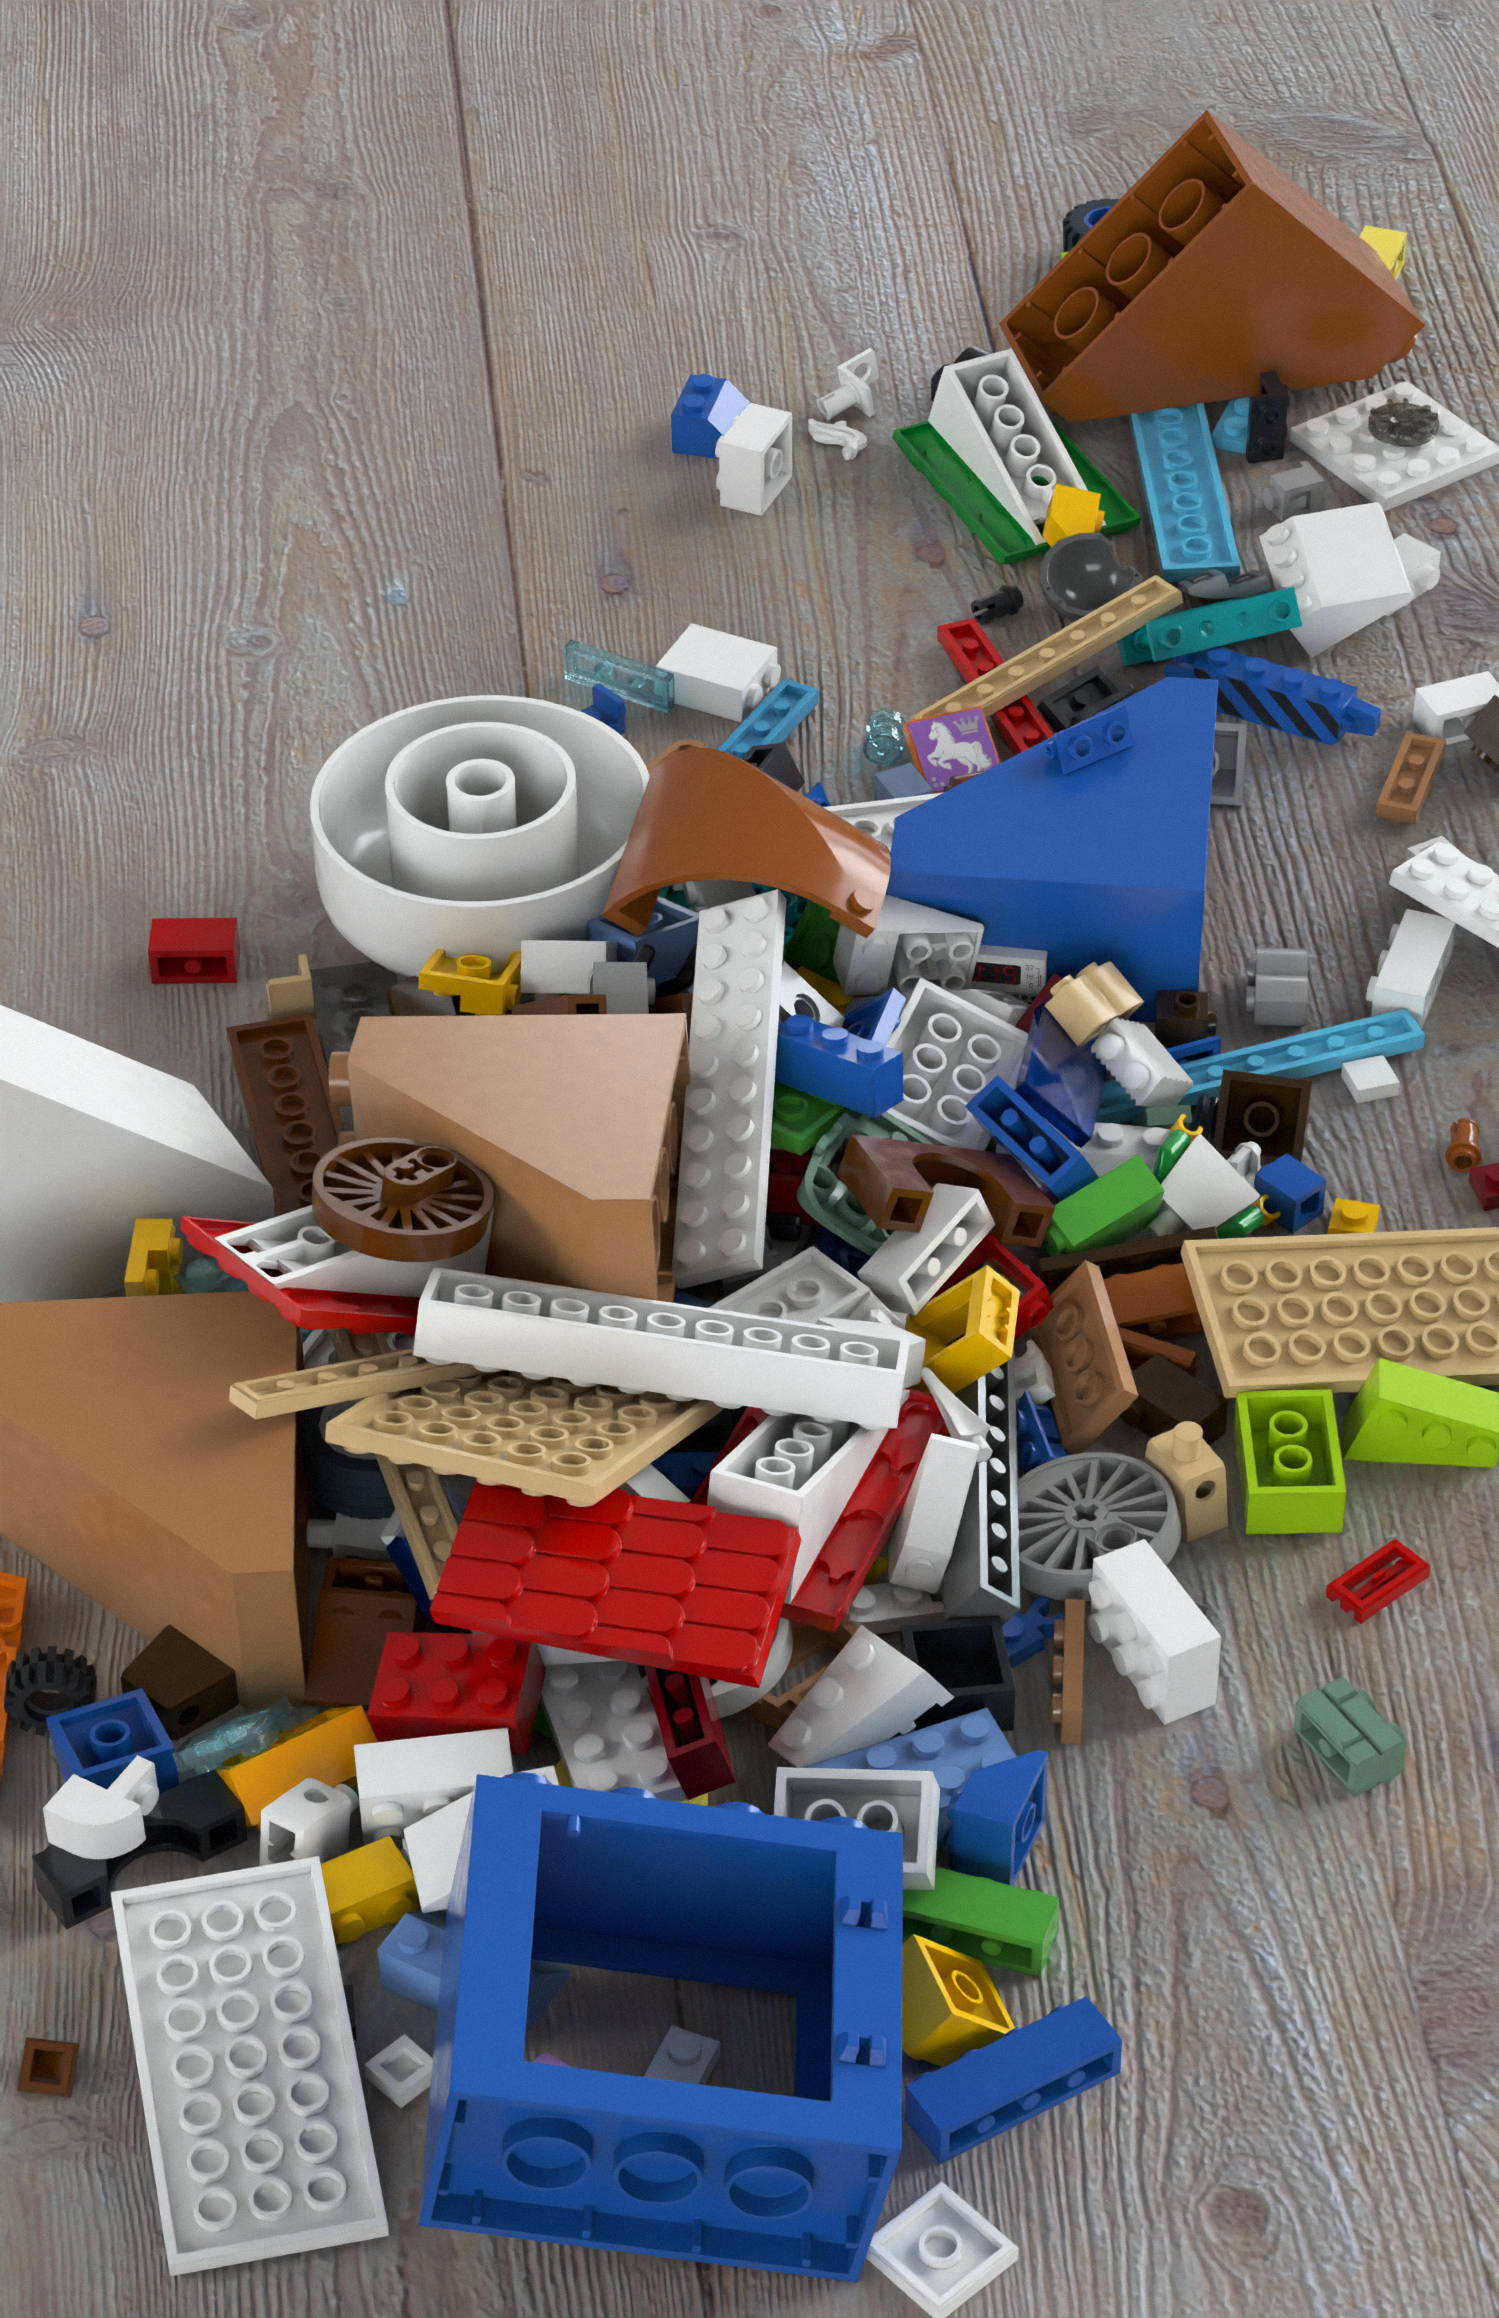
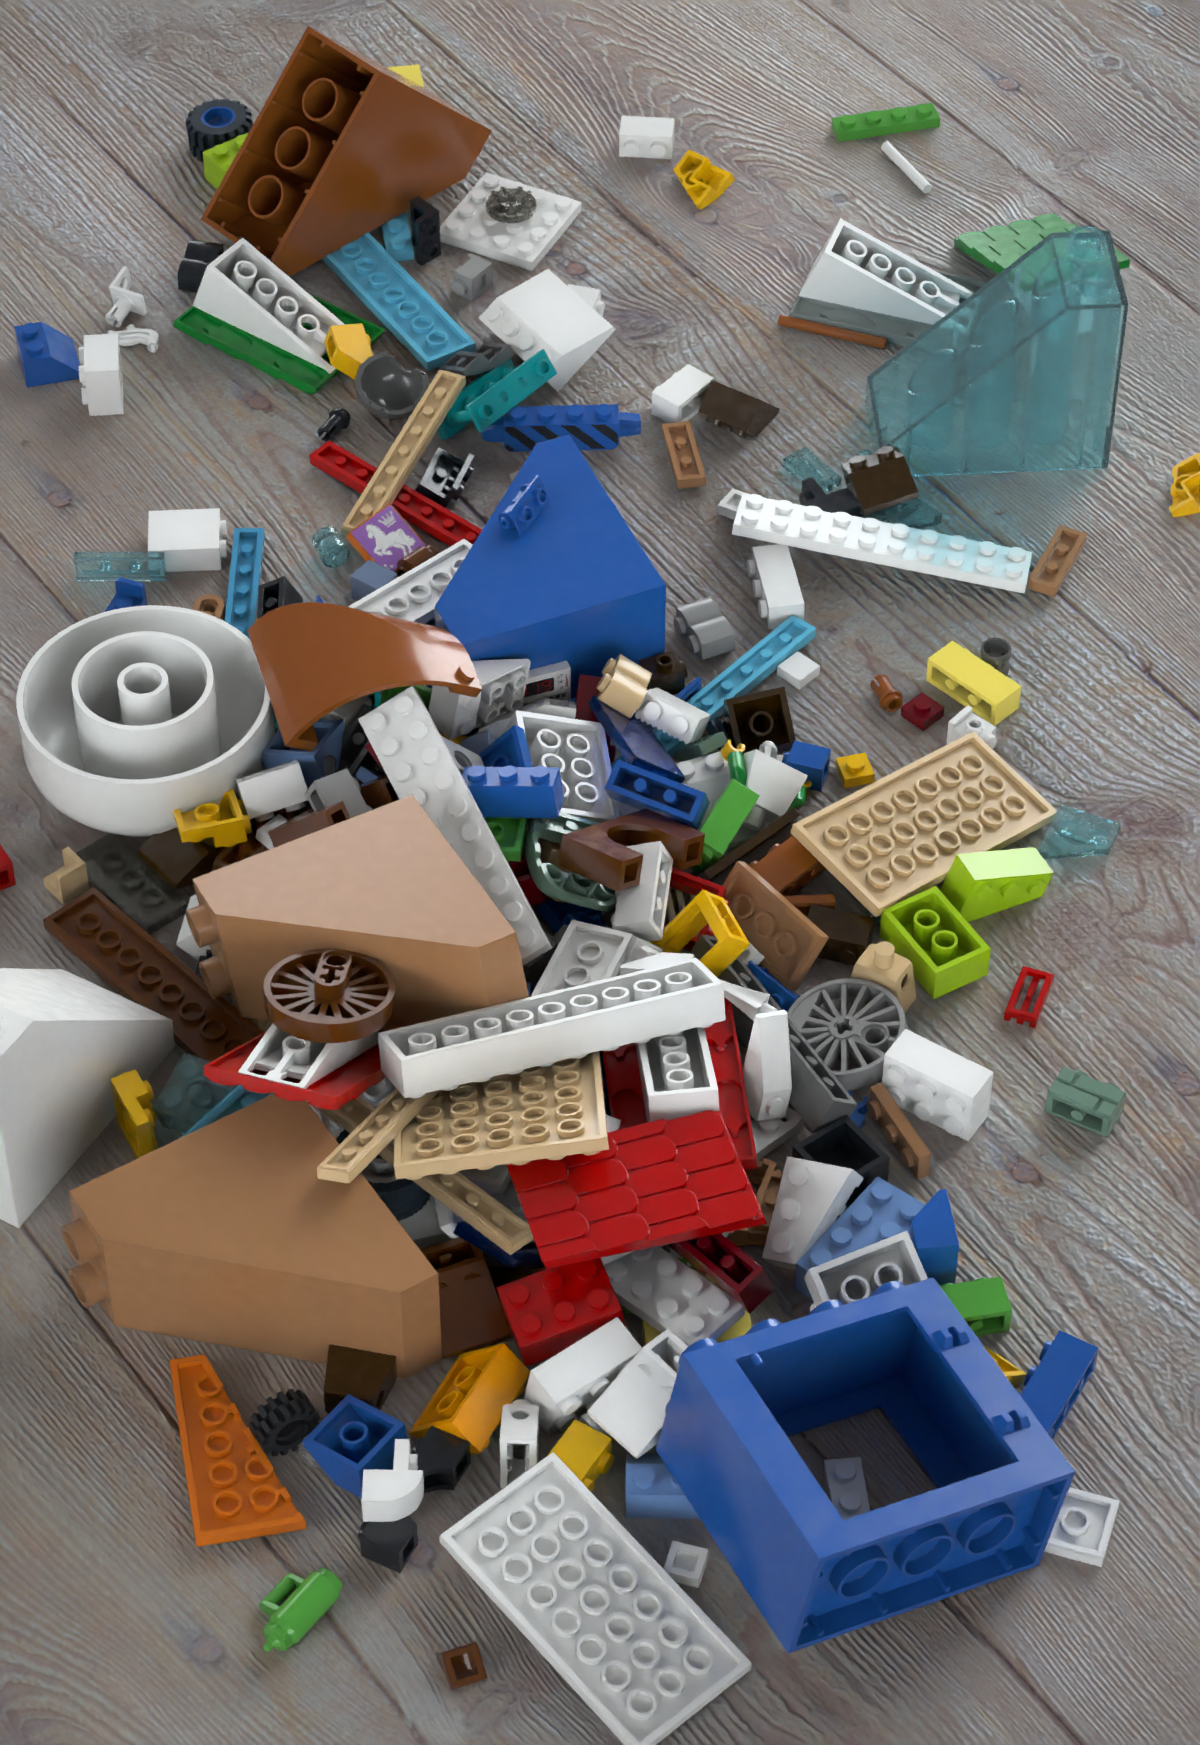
camera: 30 degrees left, 5 degrees up
(240, 1735) = (434, 1399): clear light blue wing -> none

